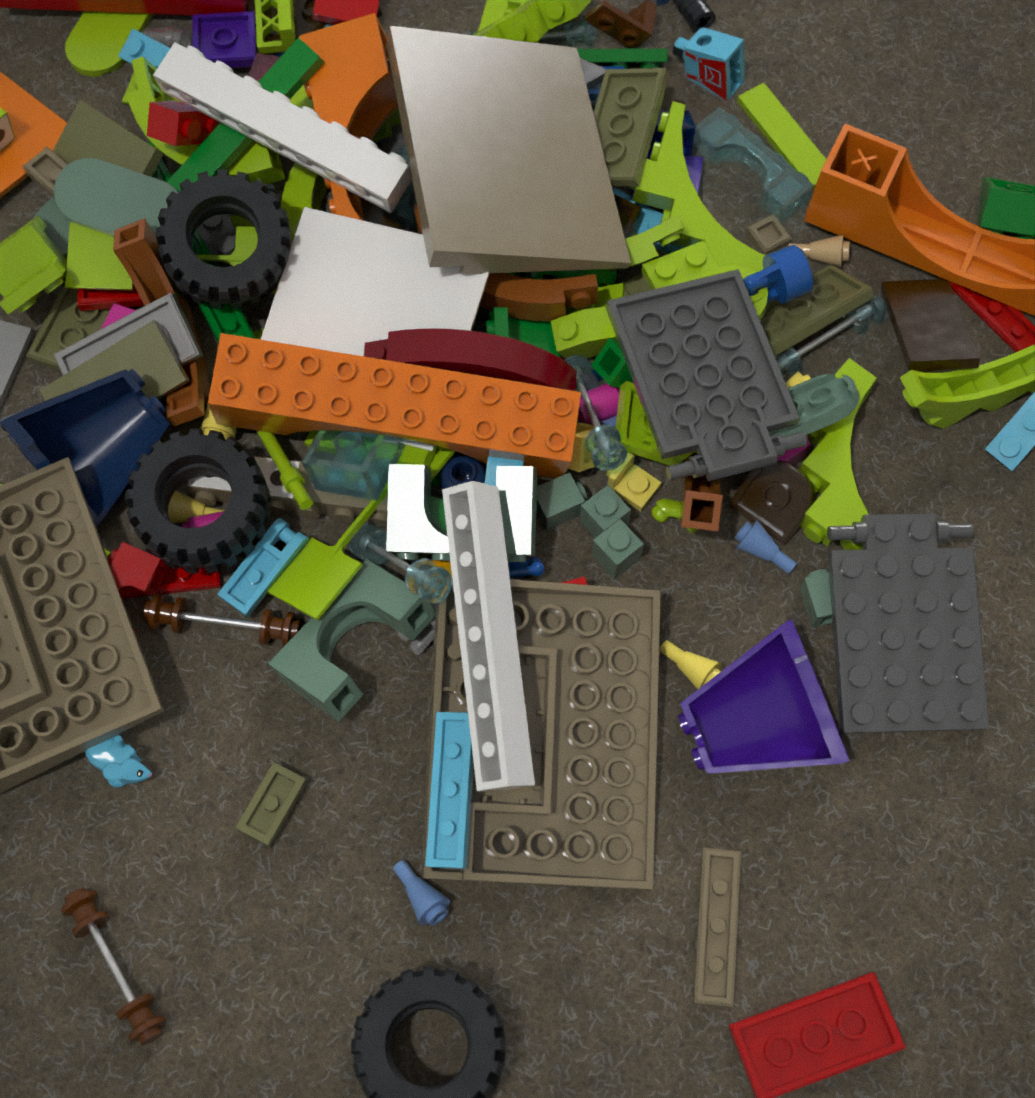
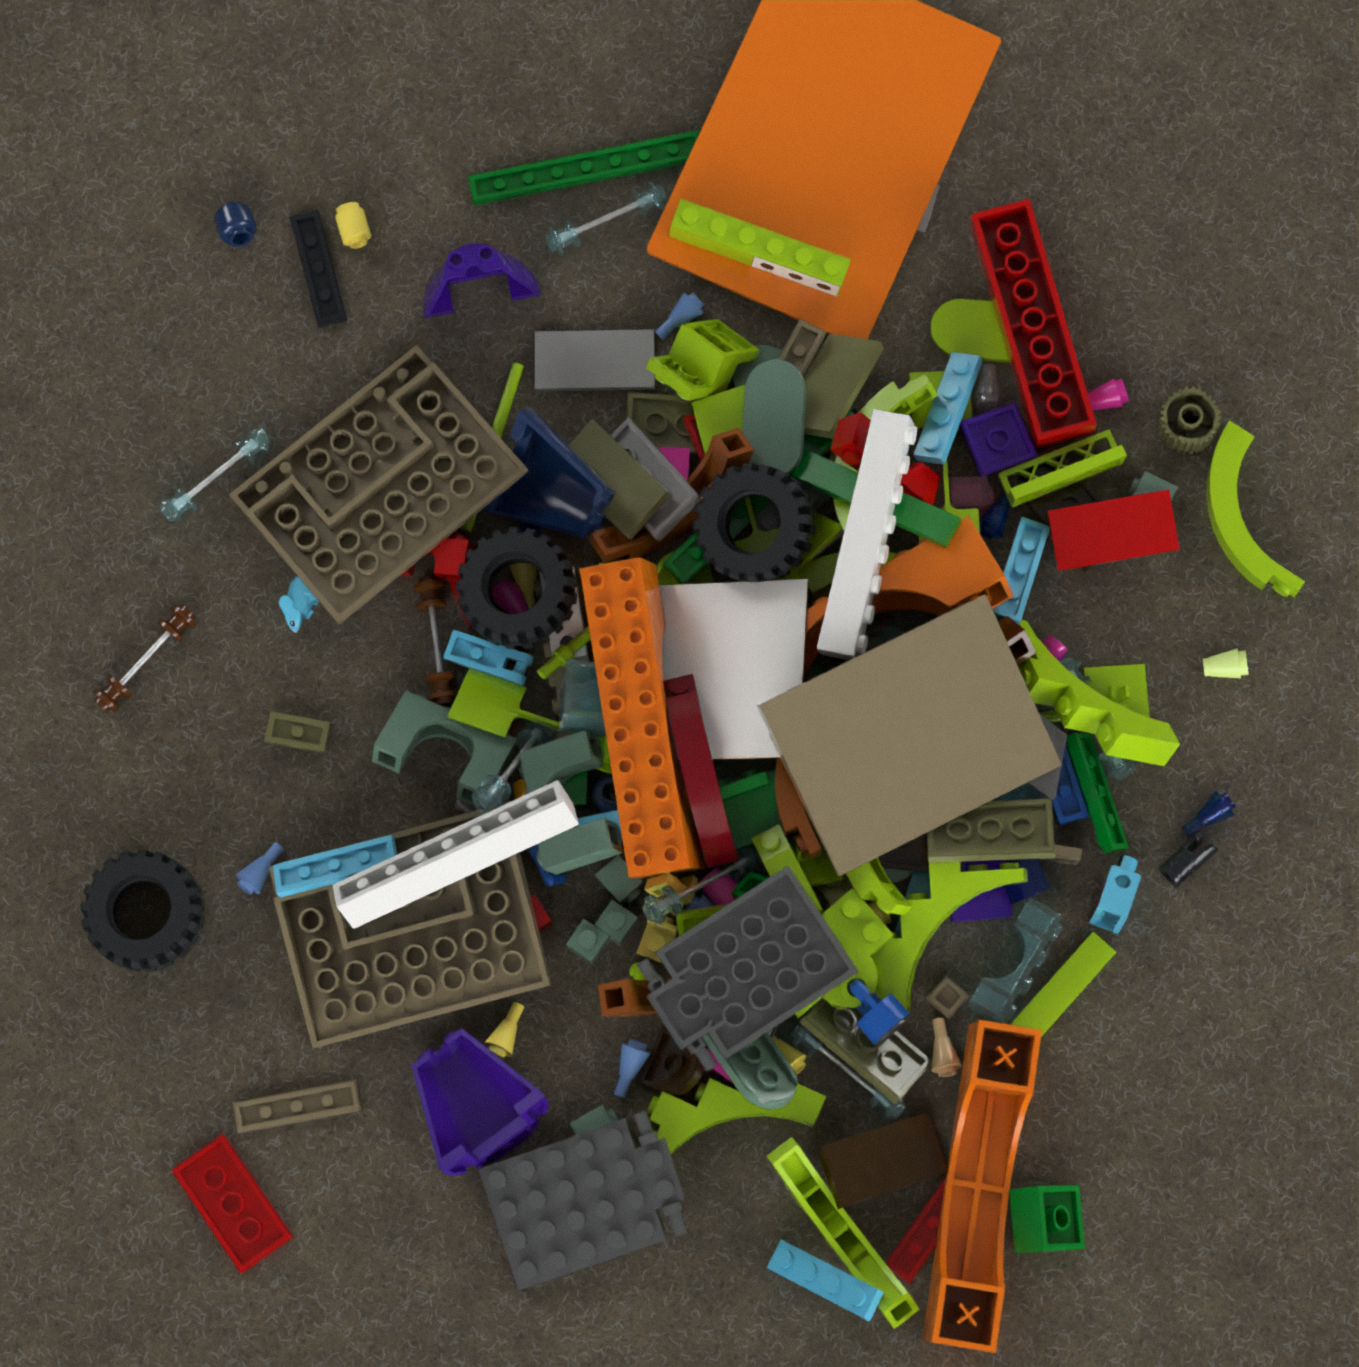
camera: 80 degrees right, 10 degrees up
(627, 29) = (1139, 817): reddish brown bracket -> none

